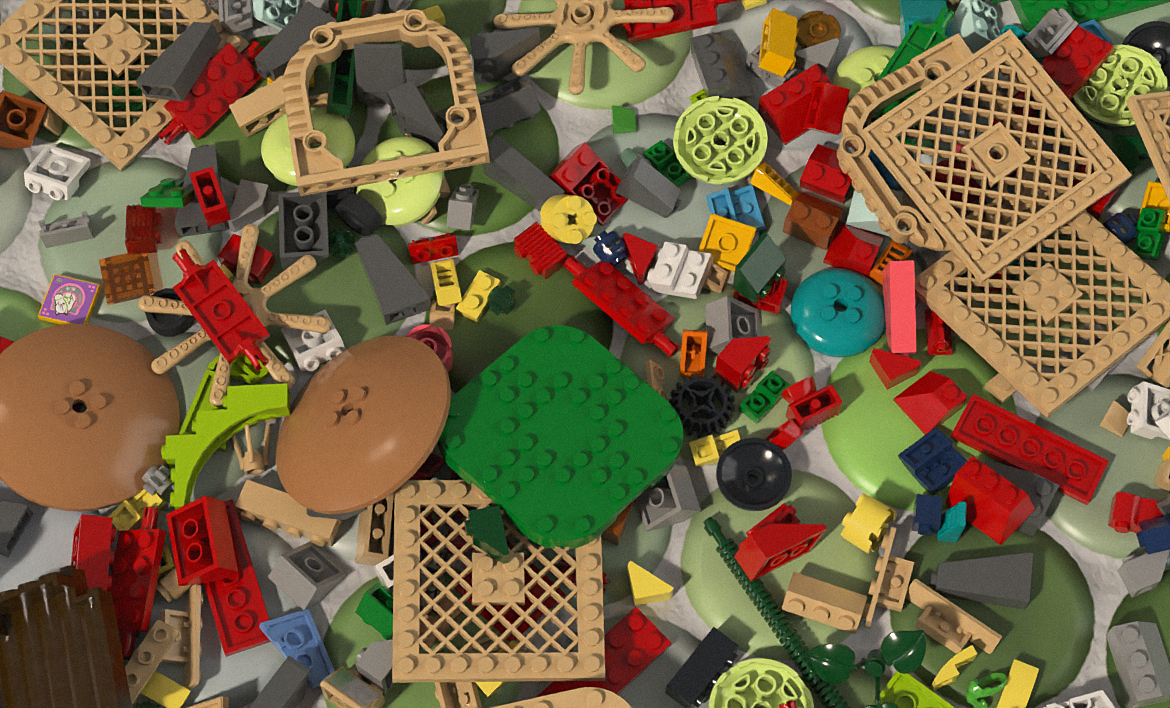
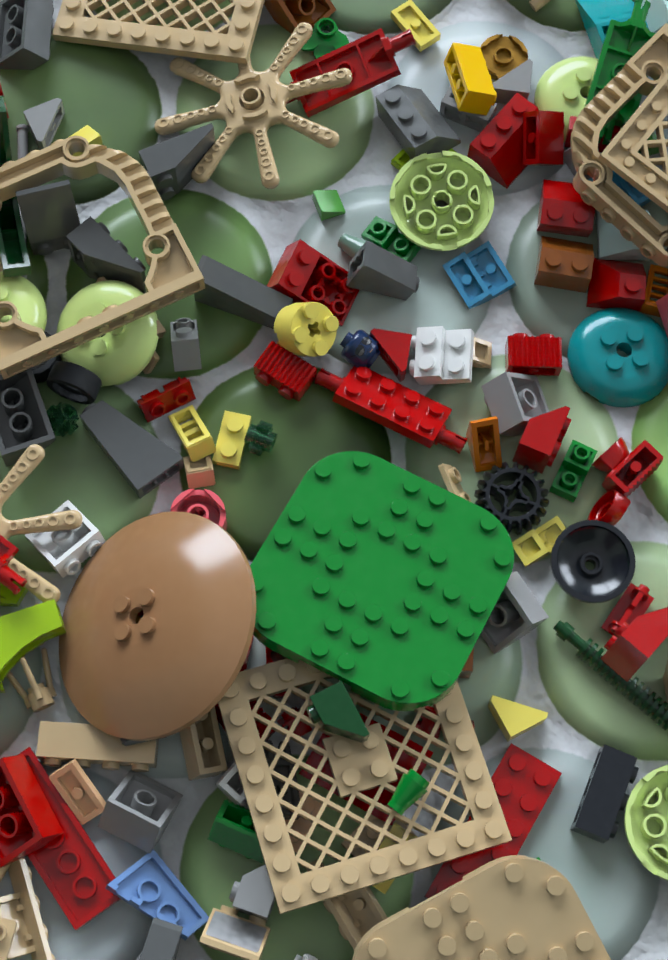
camera: 20 degrees left, 5 degrees up
(260, 544) = (78, 791): none -> light nougat plate
(502, 106) = (198, 218): dark grey slope -> none
(528, 612) = (408, 791): none -> green cone
(727, 241) = (482, 310): yellow tile -> none
(759, 269) = (532, 334): dark green slope -> none
(773, 184) = (511, 235): yellow slope -> none

